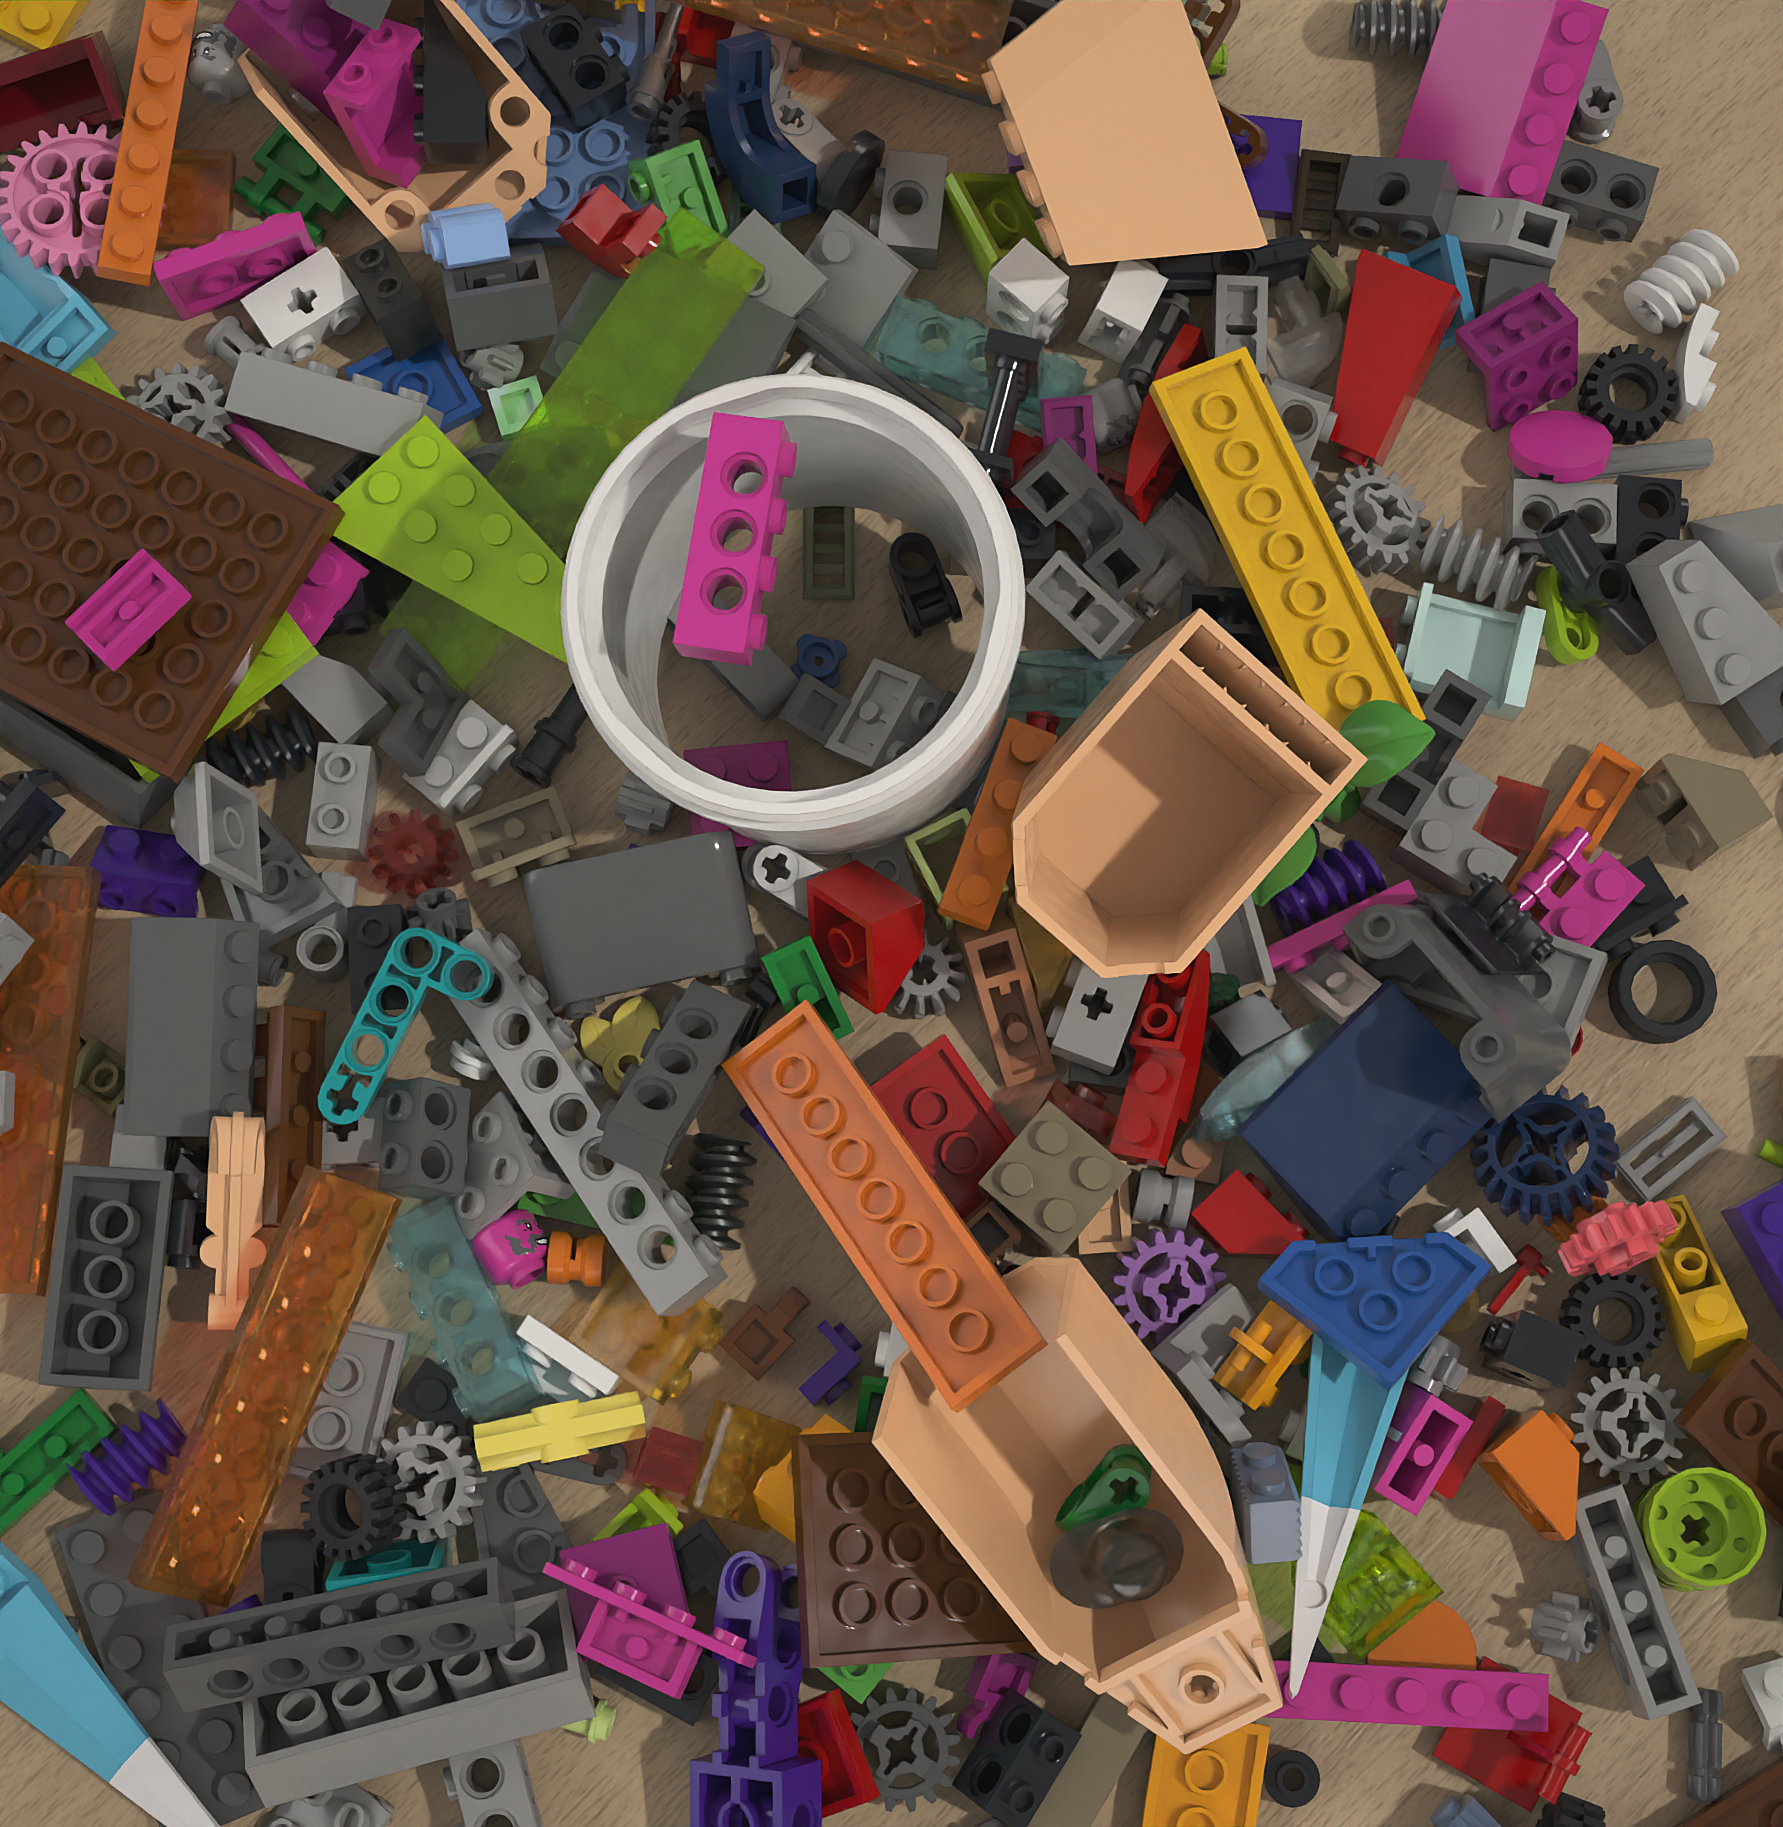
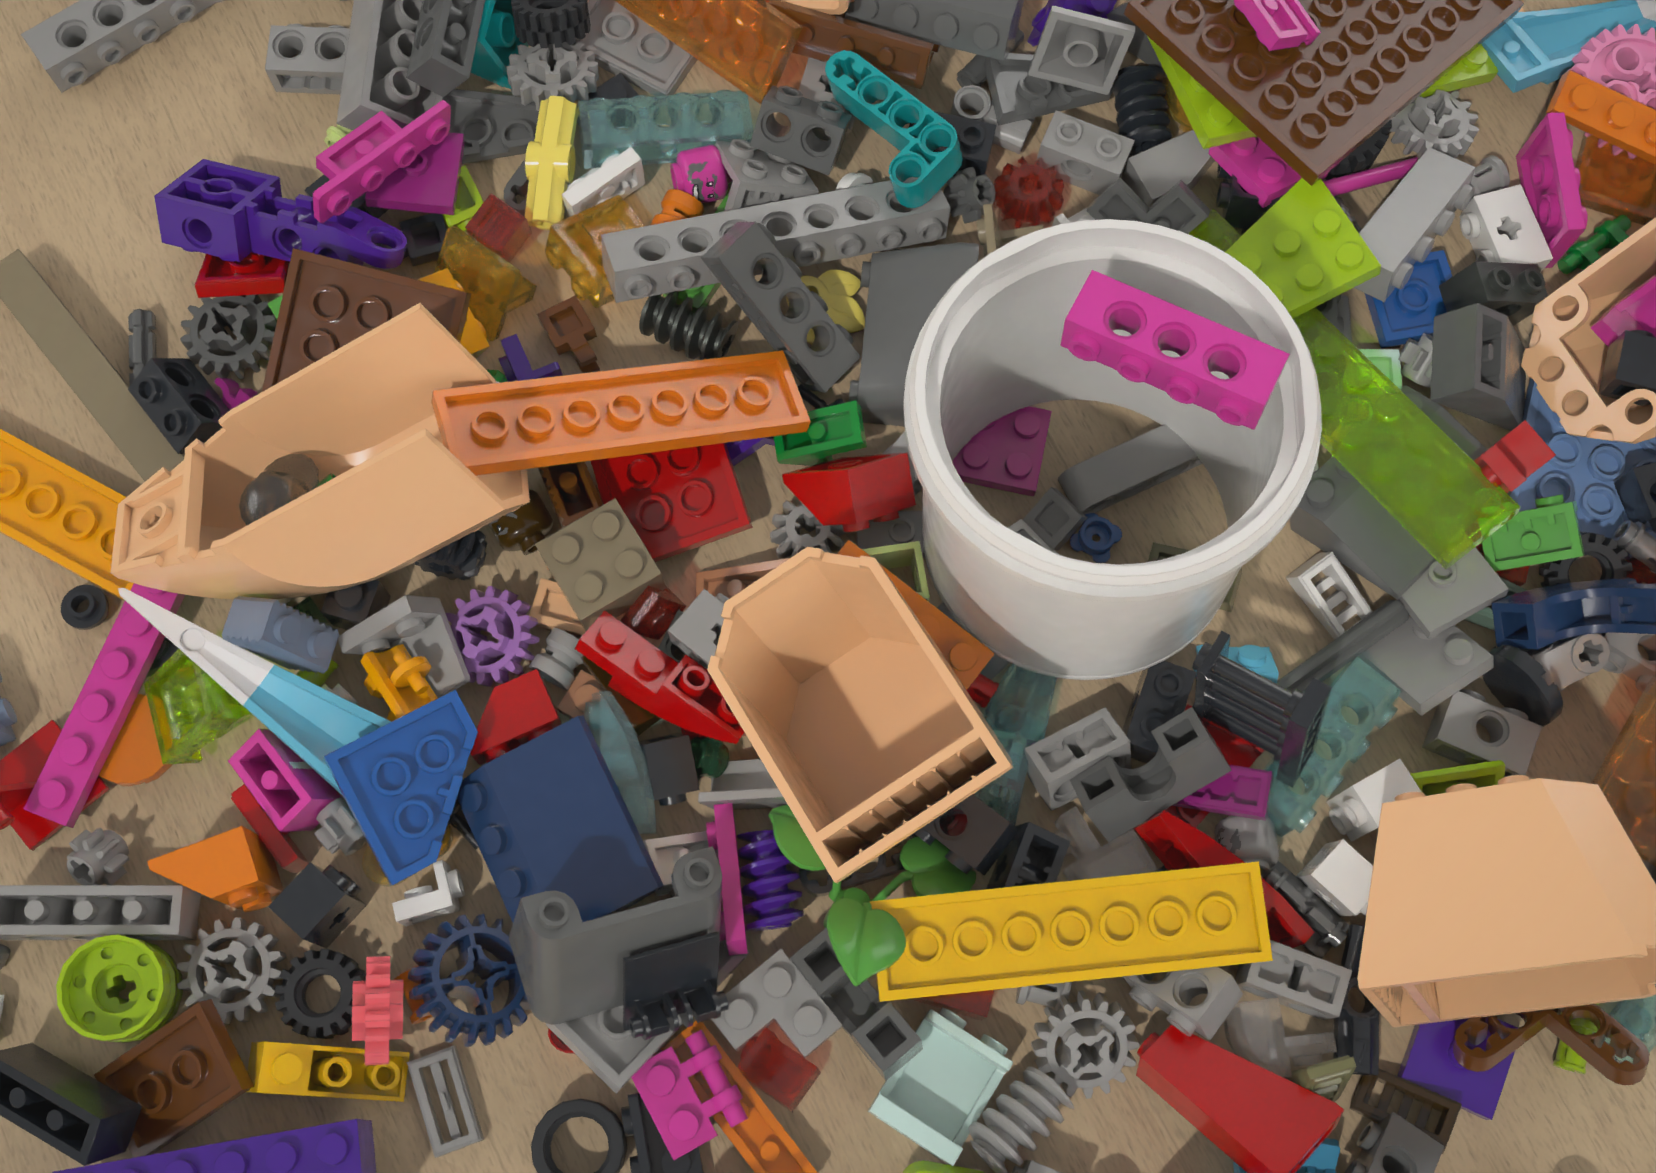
camera: 105 degrees right, 5 degrees down
(466, 236) = (1533, 345): light blue brick -> none
(1527, 1259) = (401, 942): red piece -> none

